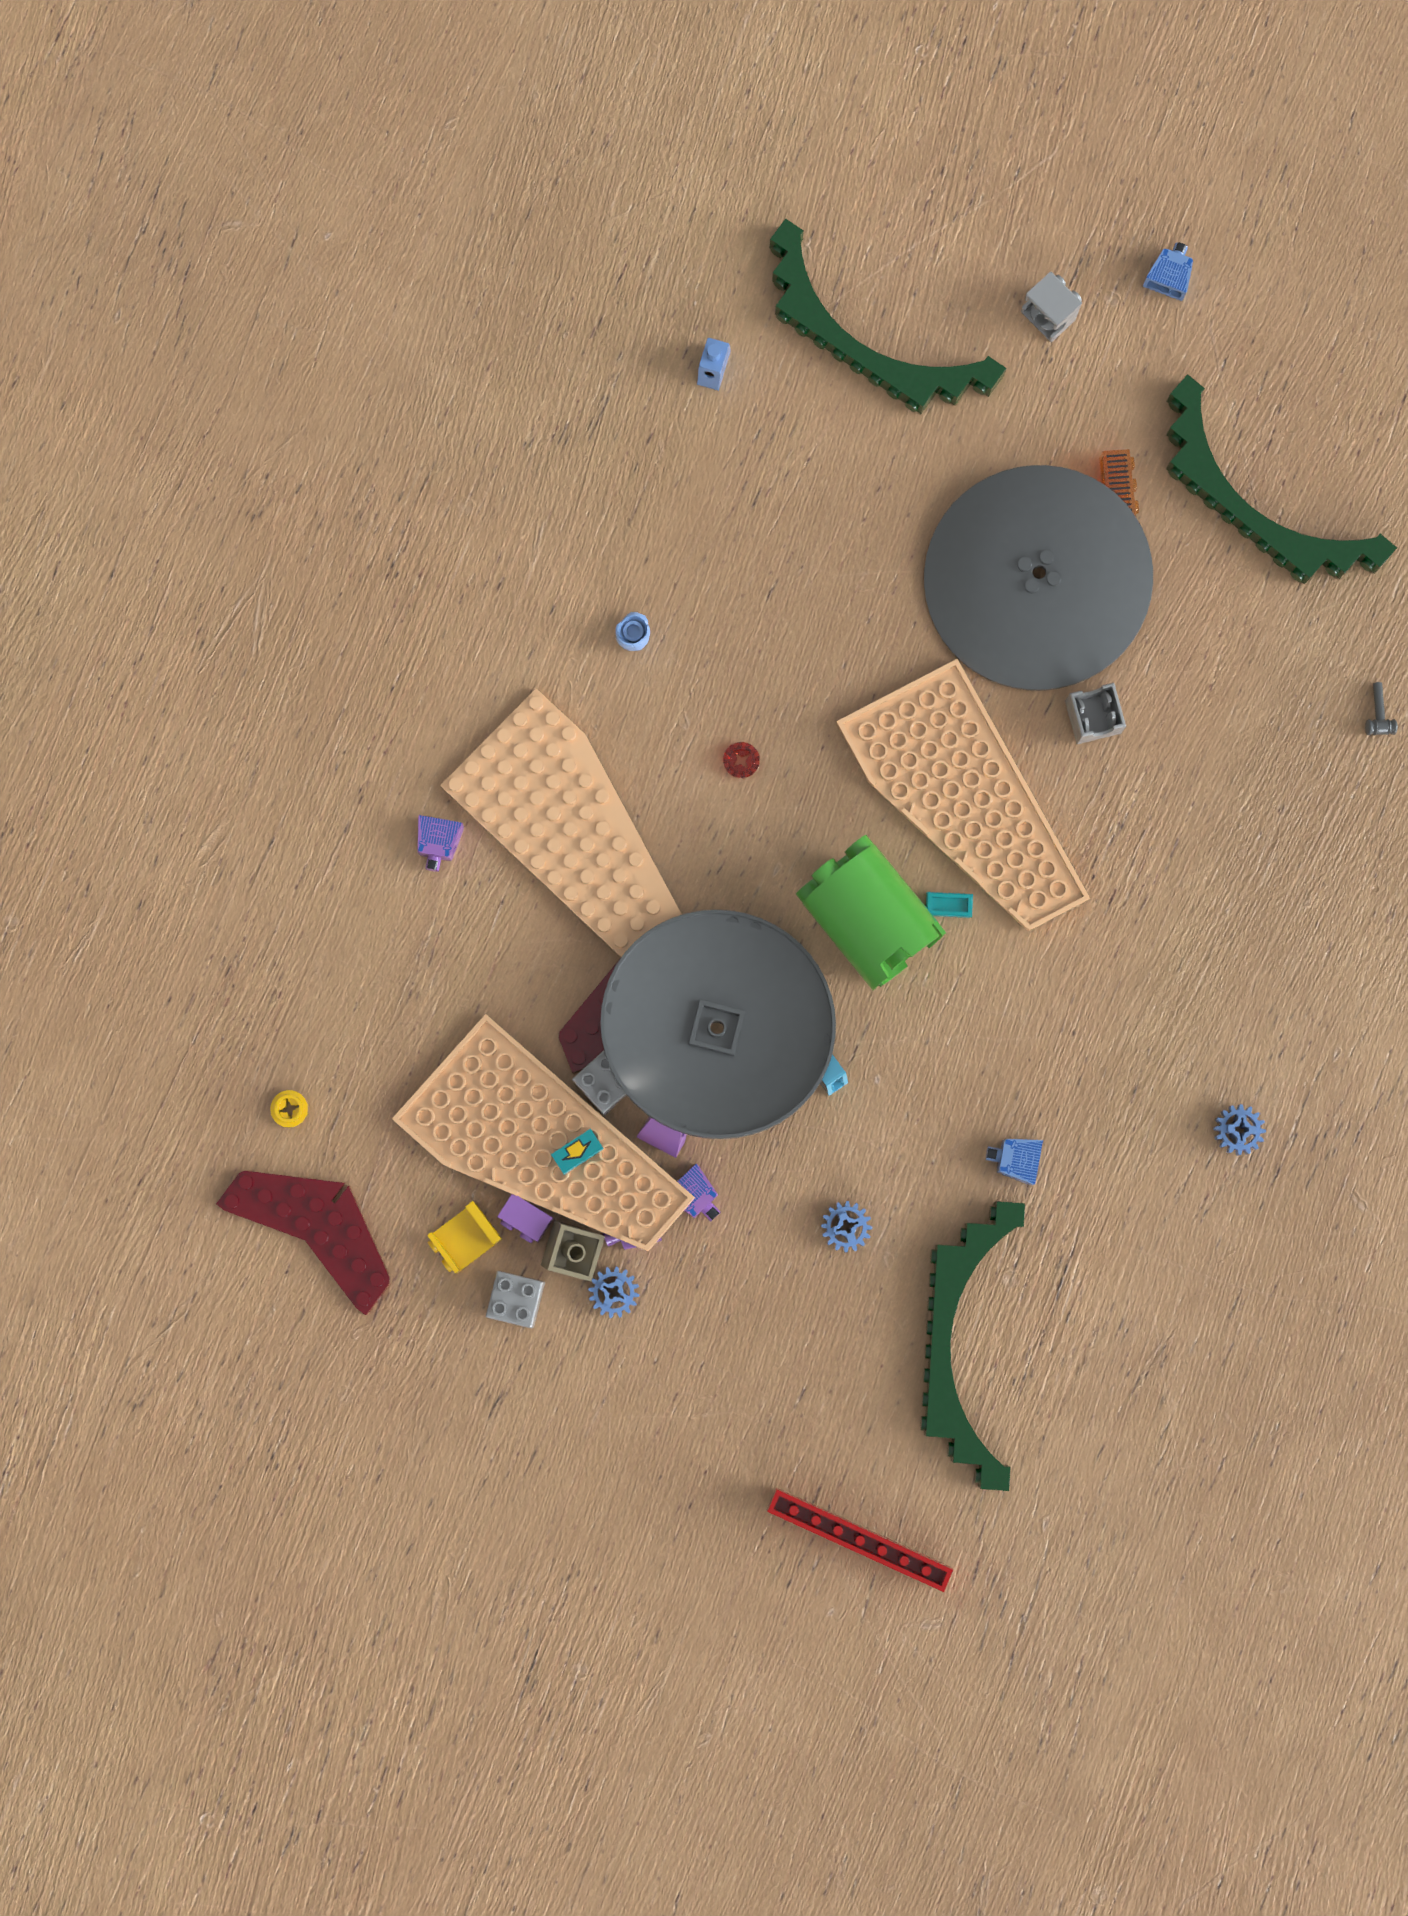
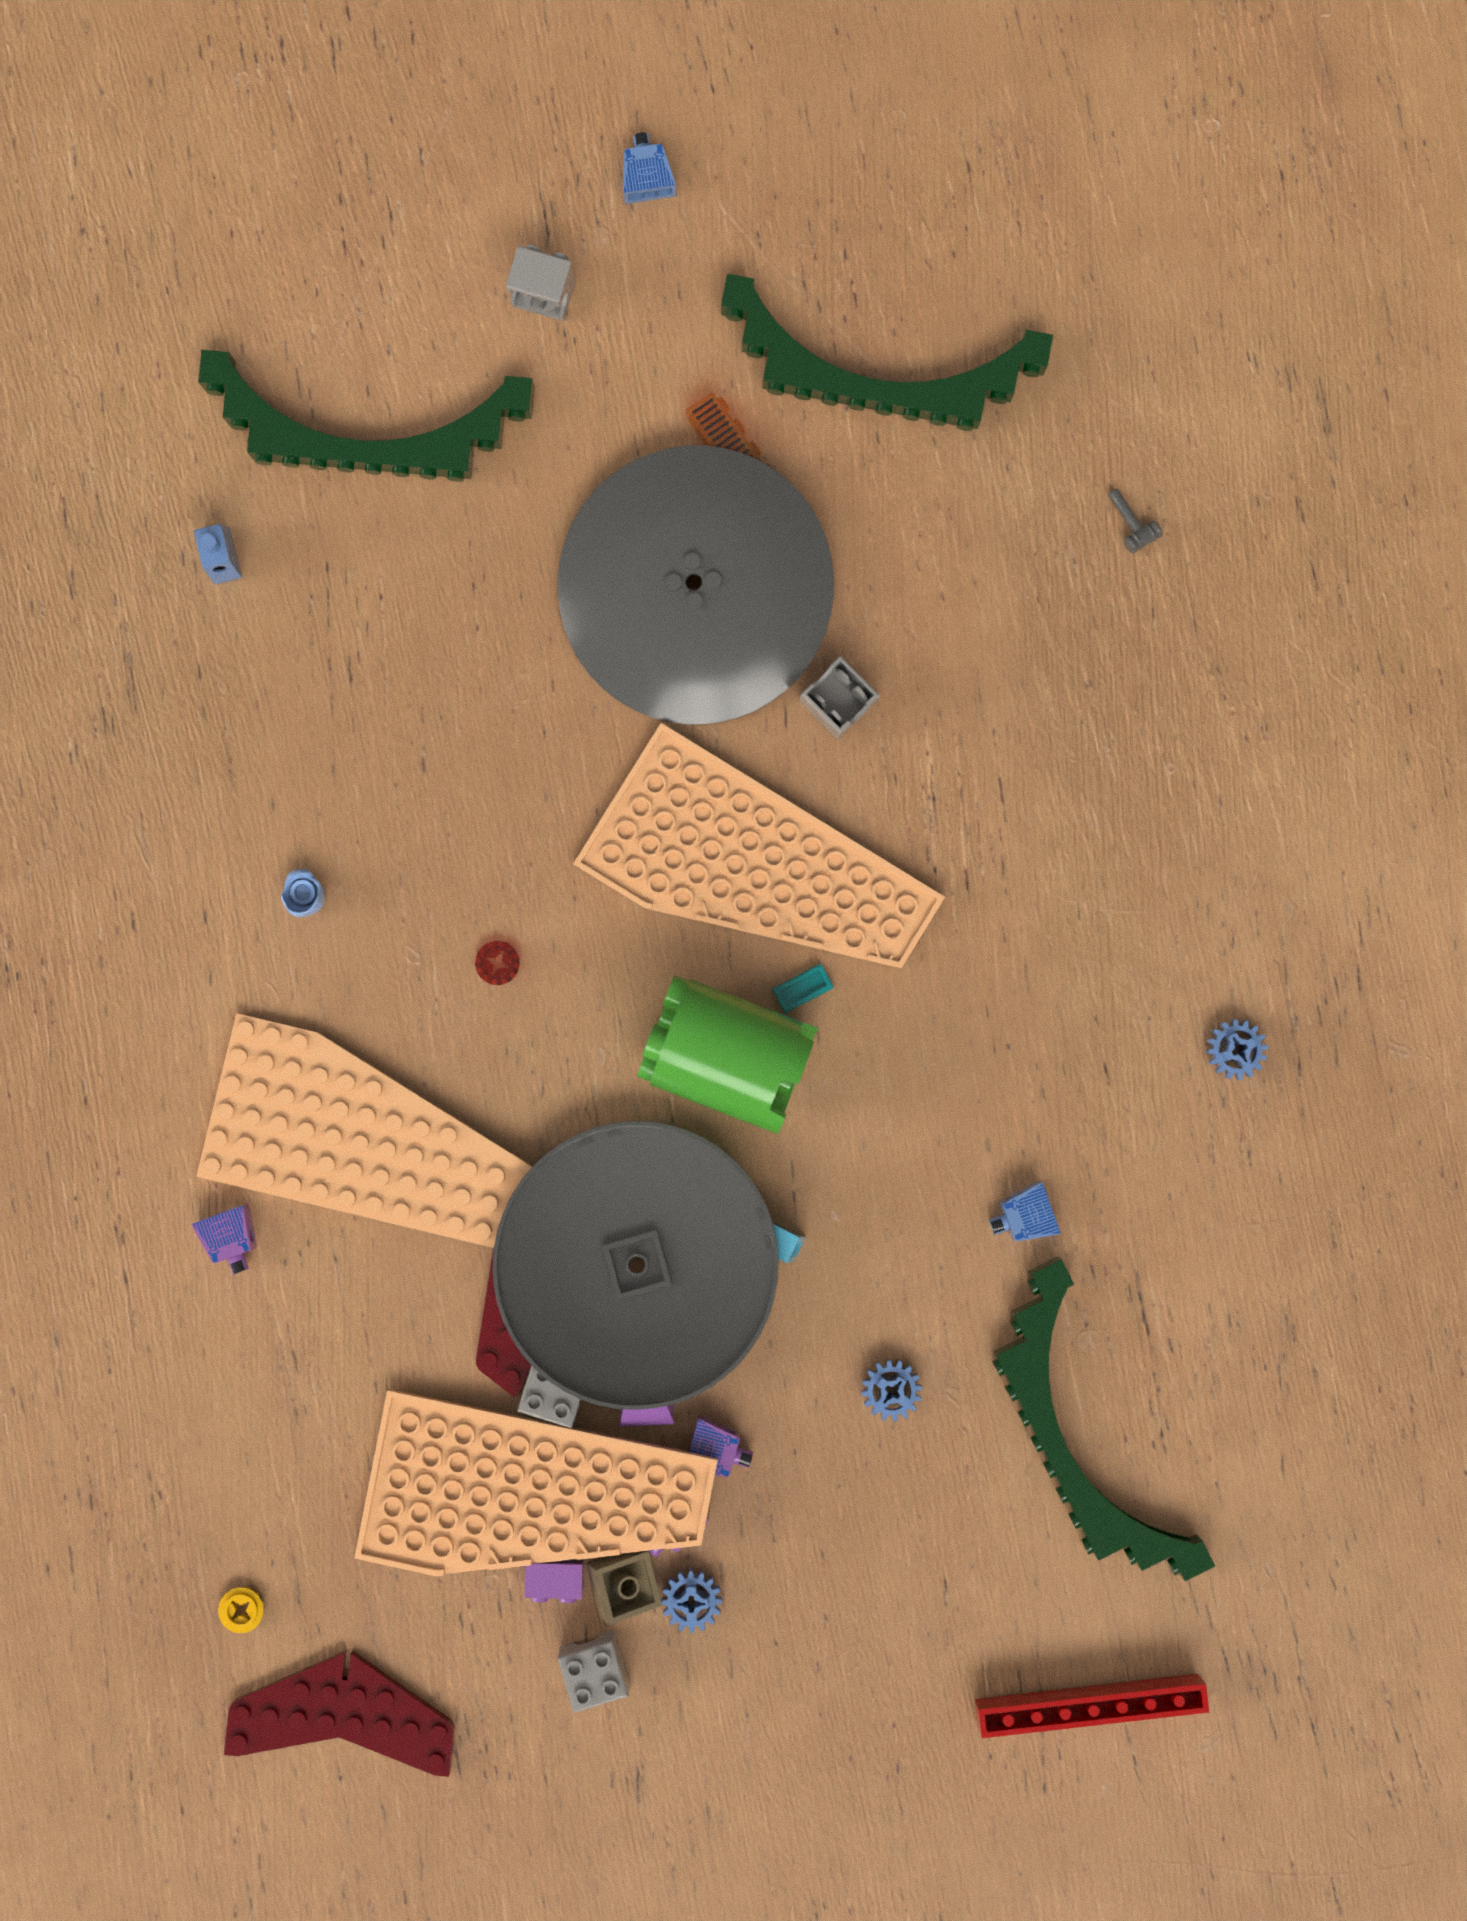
camera: 30 degrees left, 5 degrees up
(464, 1238) = (503, 1636): yellow panel -> none
(577, 1151) = (567, 1483): teal tile -> none

